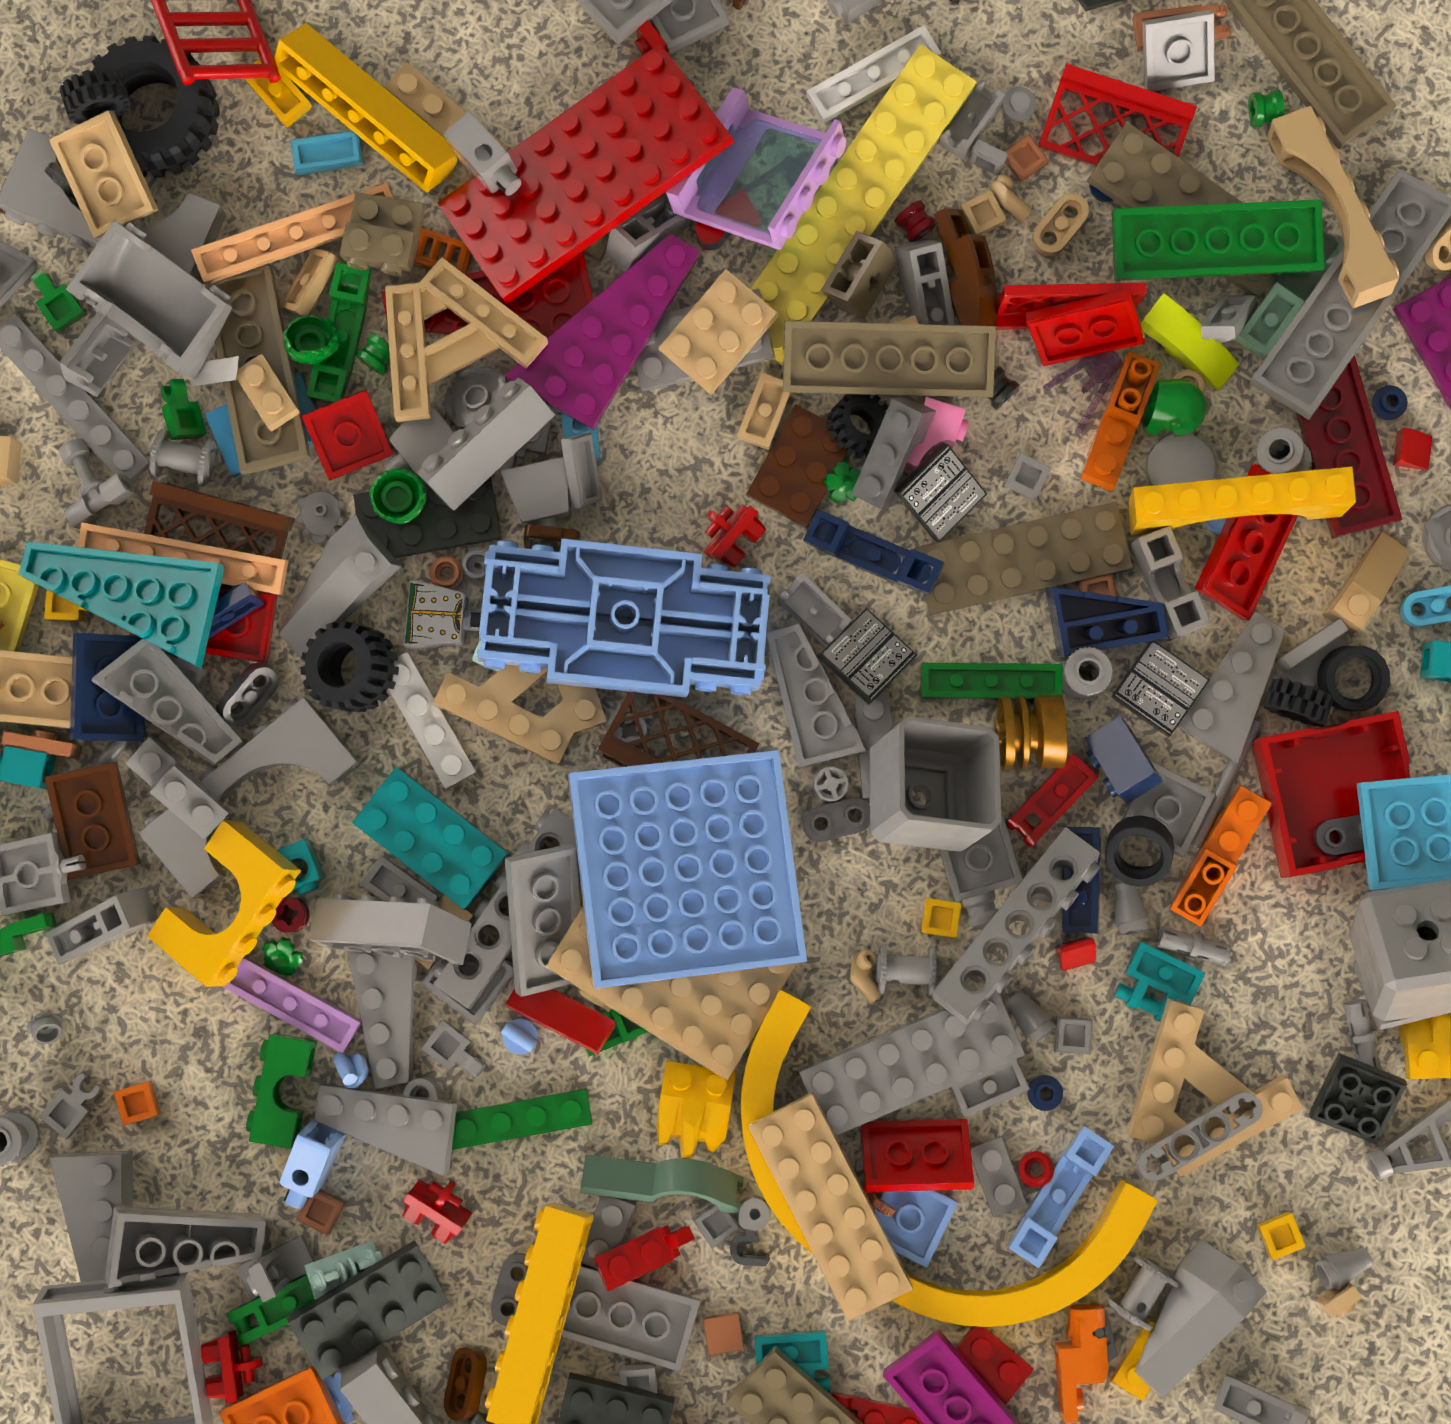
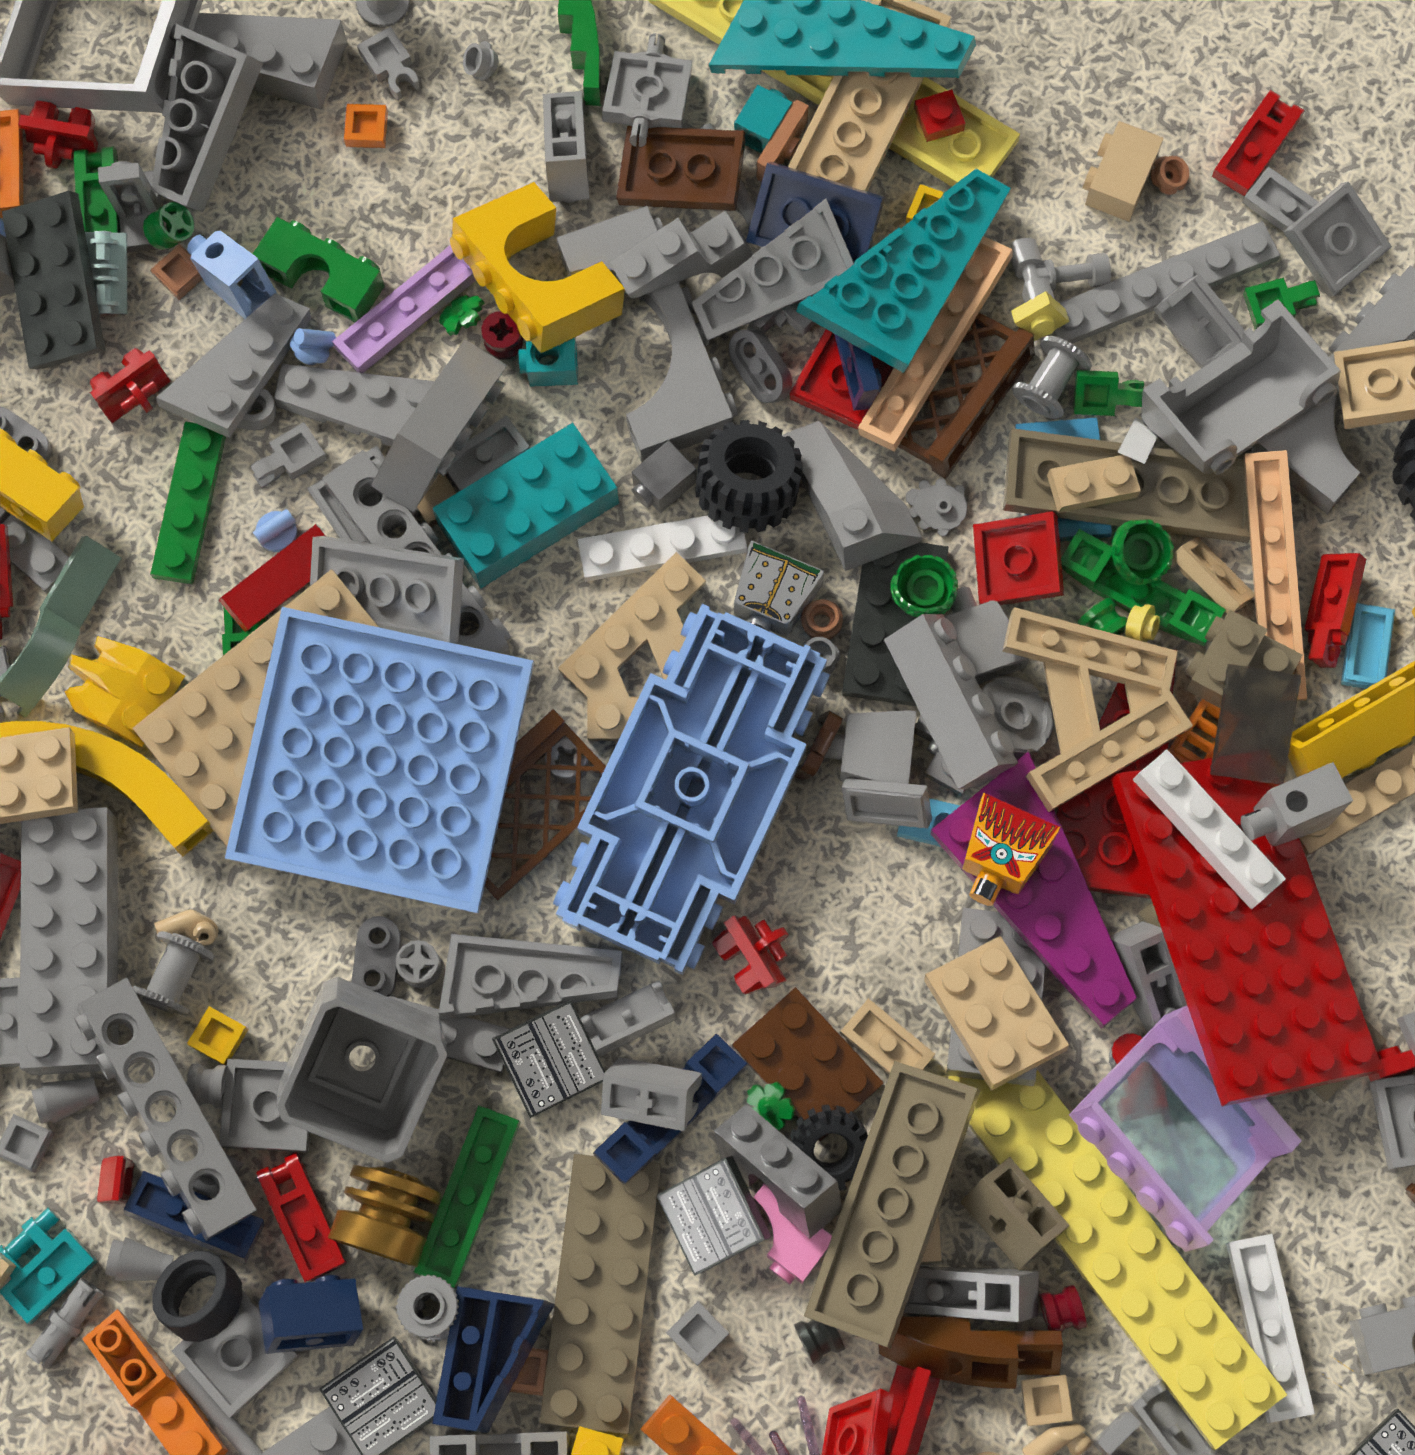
camera: 110 degrees right, 10 degrees down
(134, 481) = (1040, 315): none -> light yellow plate
(278, 1230) = (178, 225): none -> green wheel
(302, 185) = (1333, 606): none -> red hinge
(369, 322) = (1142, 623): none -> light yellow plate
(371, 738) = (663, 477): none -> flat silver brick
(426, 208) = (1255, 724): none -> clear smoke piece
(523, 217) = (1209, 829): none -> white plate
(592, 362) = (1005, 848): none -> torso
(867, 570) = (650, 1093): none -> light grey hinge

